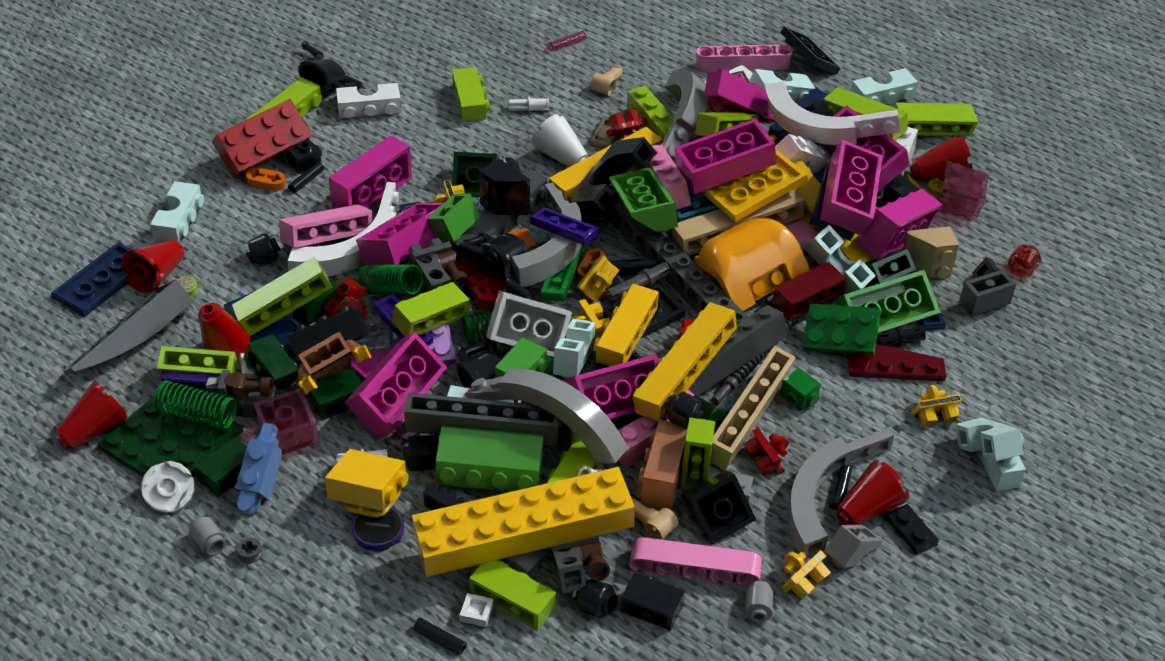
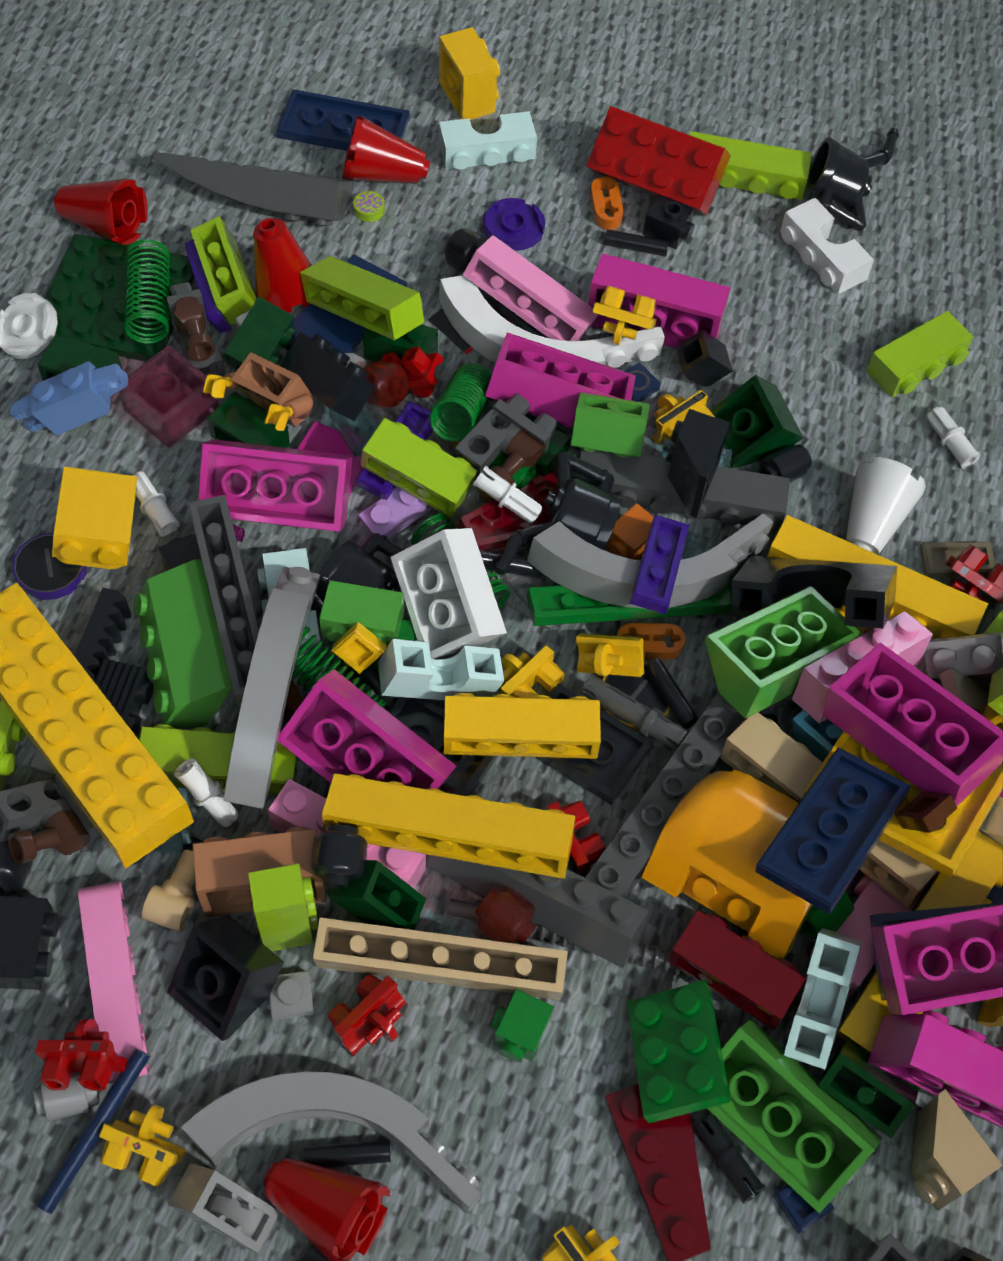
camera: 65 degrees right, 15 degrees up
(119, 197) = (468, 73): none -> yellow brick
(243, 228) = (517, 232): none -> dark purple tile
(384, 178) = (611, 307): none -> yellow hips
(419, 175) = (704, 359): none -> black brick
(475, 276) = (508, 495): none -> white axle
(545, 366) = (359, 647): none -> yellow tile
(740, 367) = (506, 916): none -> clear red head
(744, 573) = (81, 1051): none -> red hips
(764, 208) = (833, 830): none -> dark blue tile
(774, 169) = (926, 812): none -> reddish brown plate
(788, 591) = (92, 1131): none -> dark blue bar

